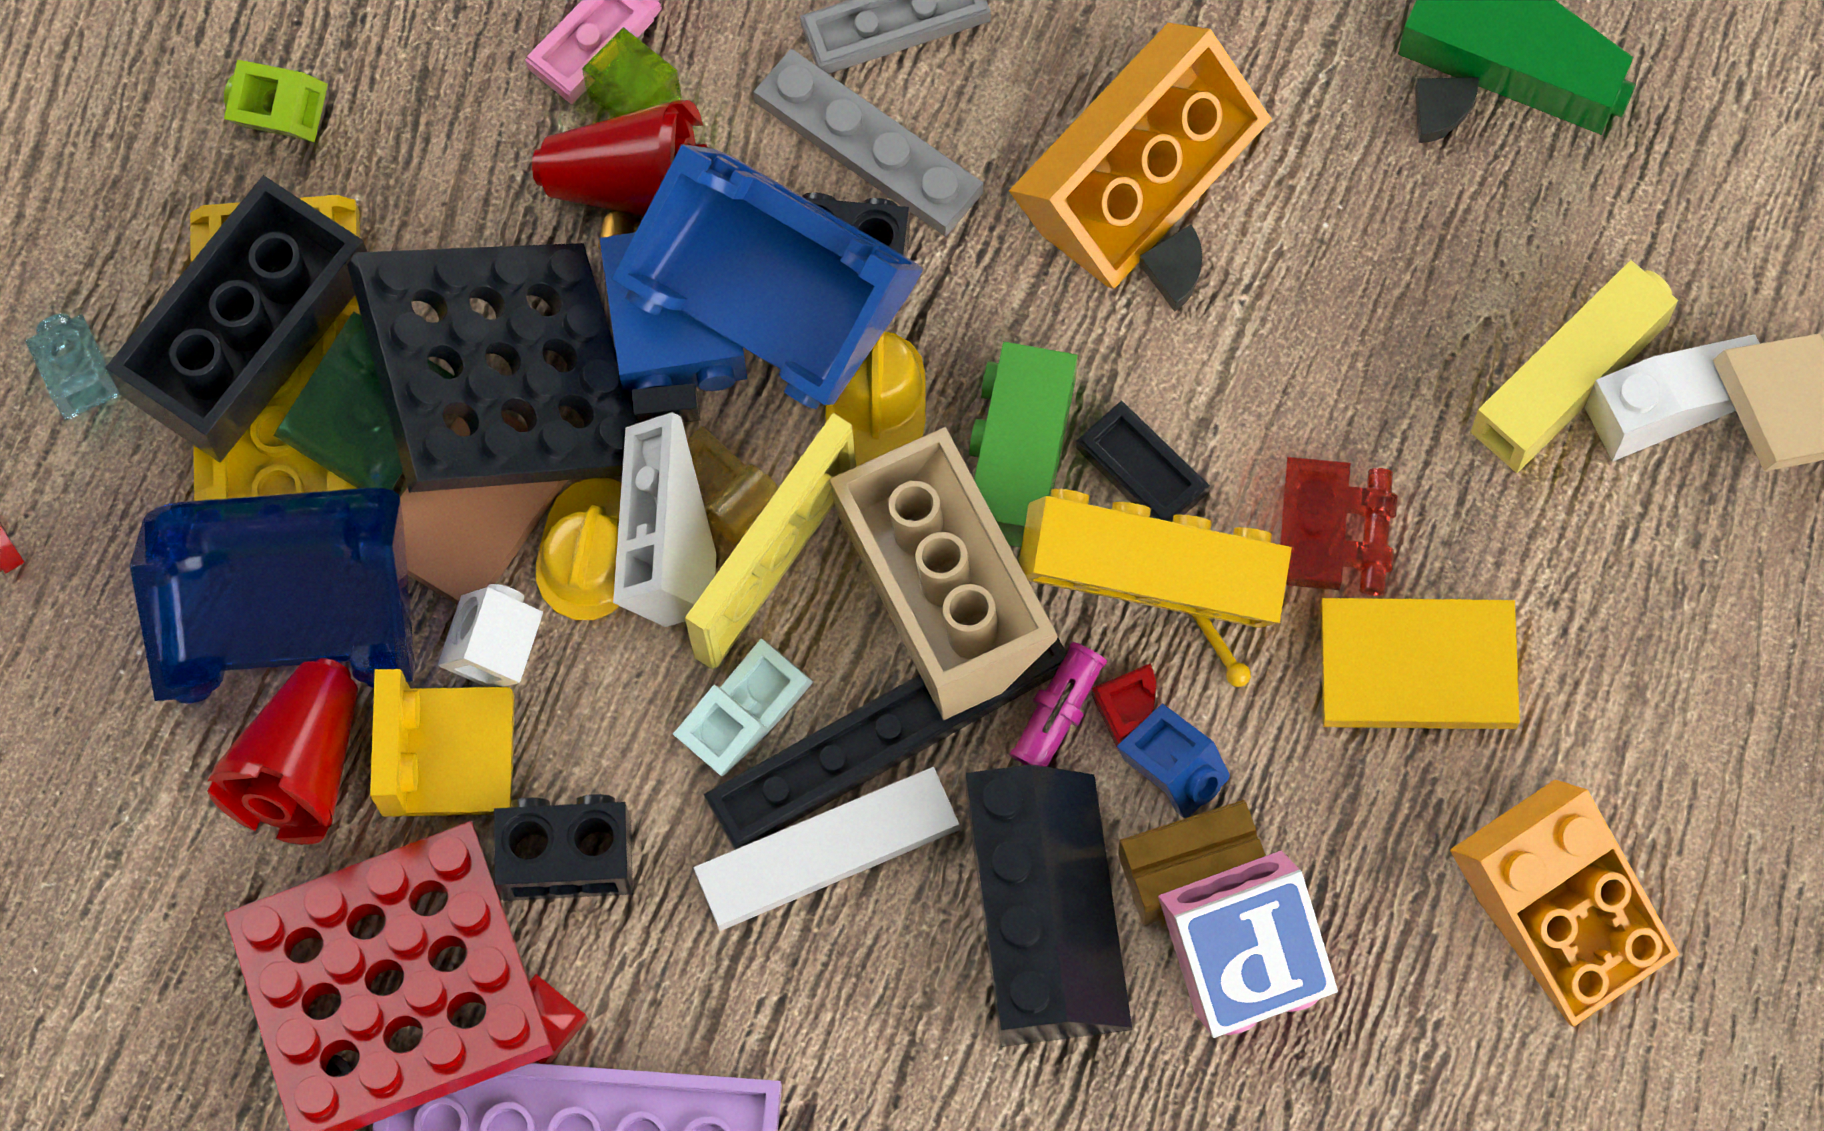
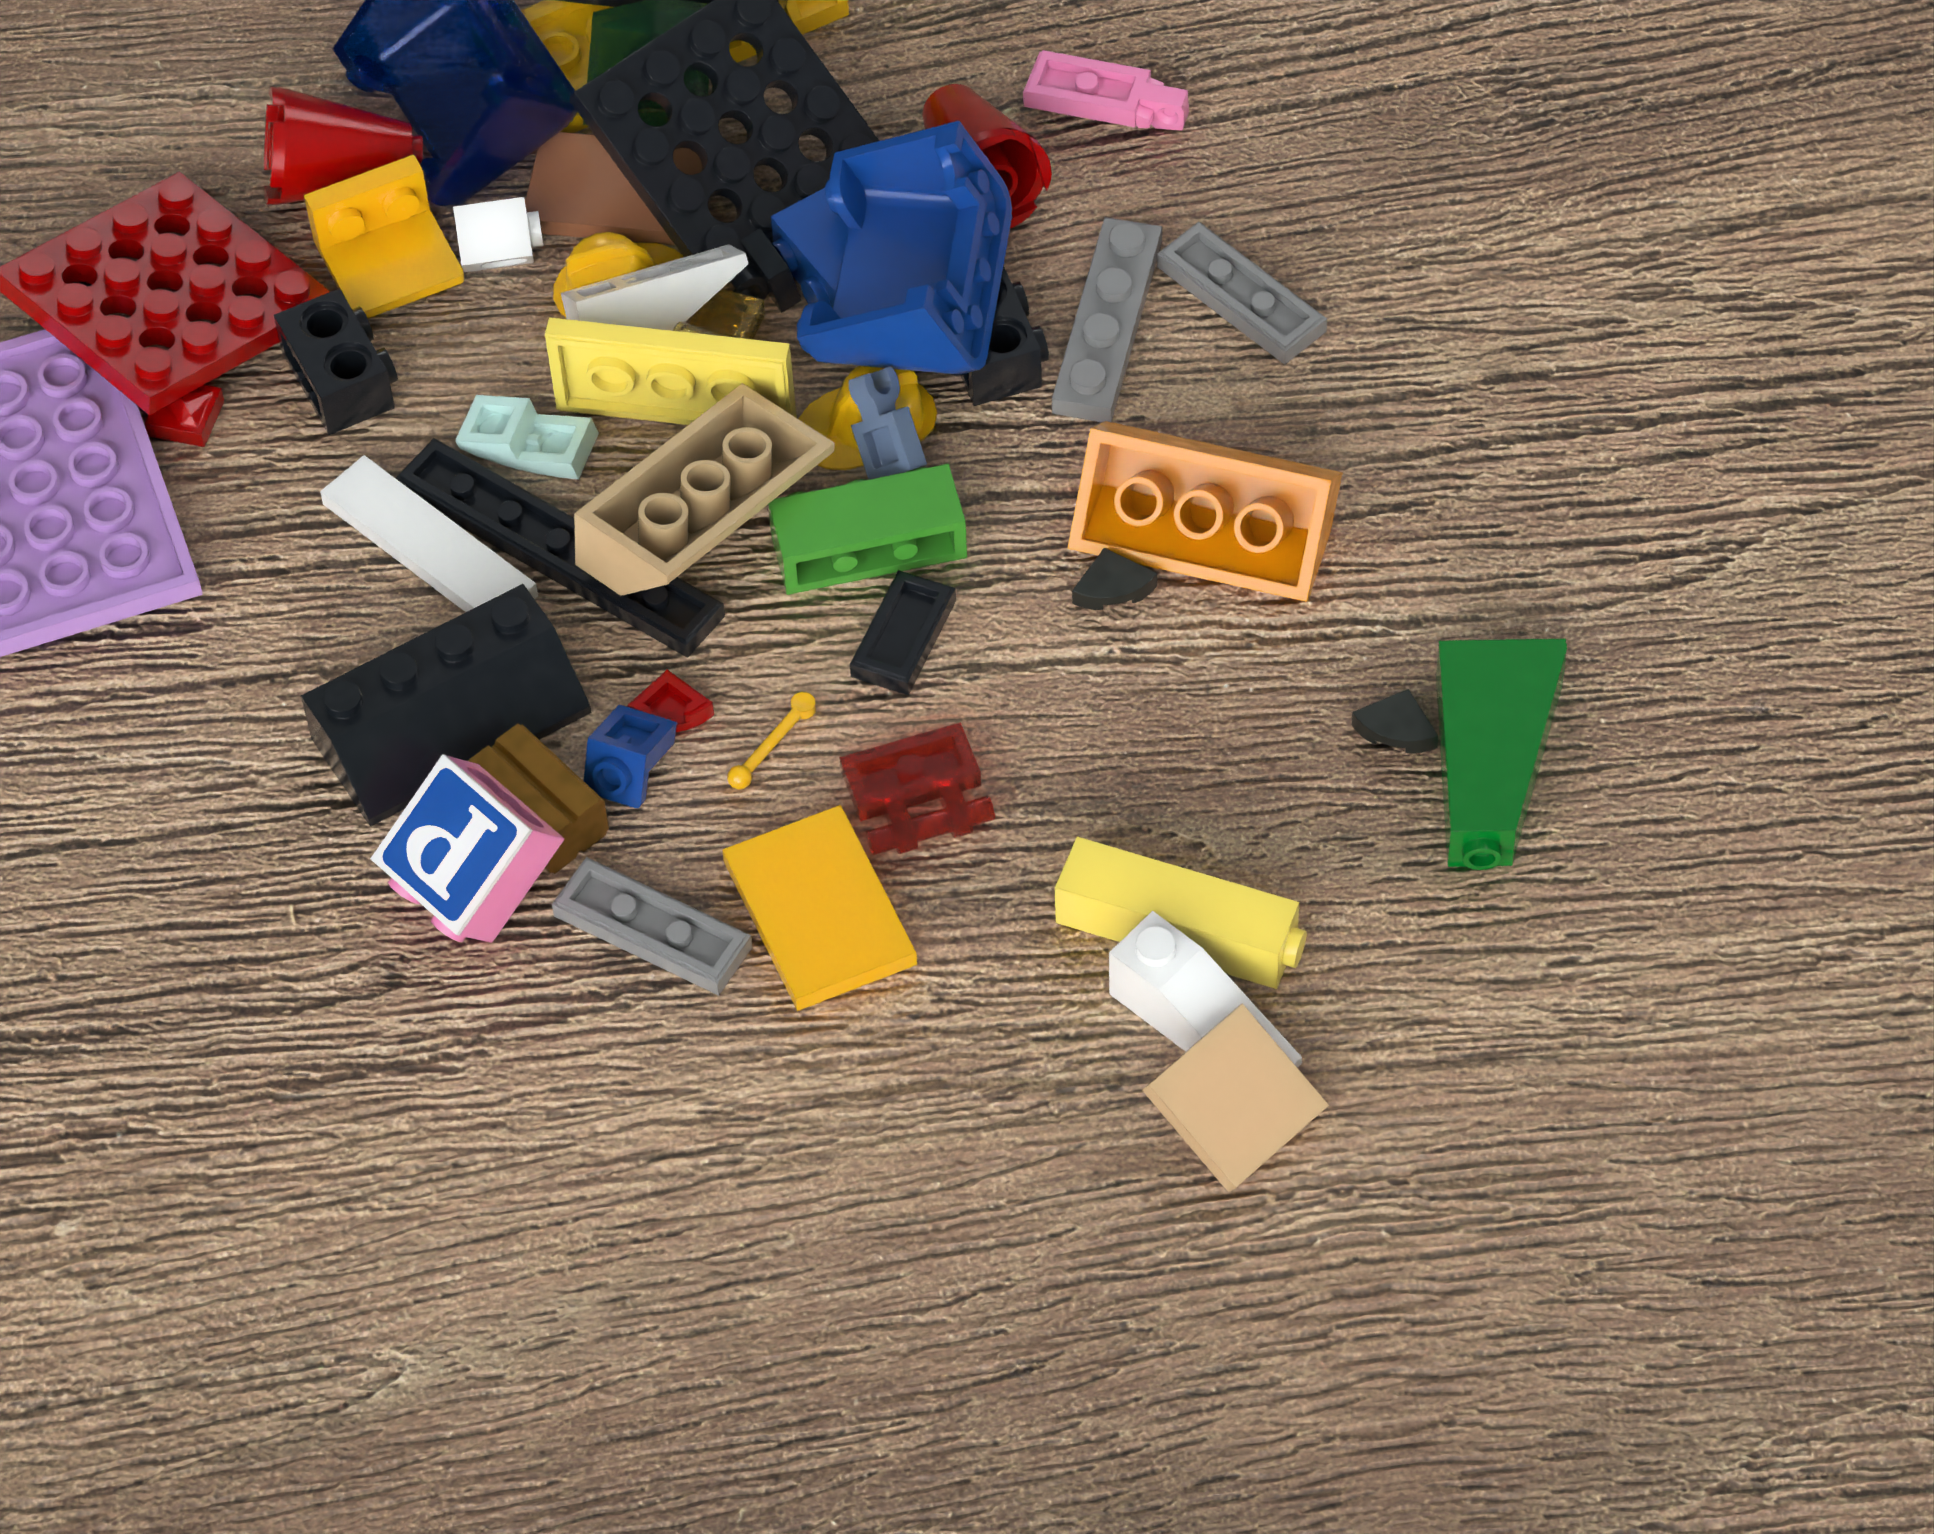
camera: 65 degrees right, 15 degrees down
(629, 76) = (1065, 125): clear neon green brick -> none
(939, 385) = (885, 435): none -> sand blue plate
(1079, 668) = (633, 648): dark pink pin -> none
(1154, 560) = (791, 644): yellow brick -> none
(1373, 816) = (652, 926): none -> light grey tile
(1566, 899) = (636, 1095): light orange slope -> none

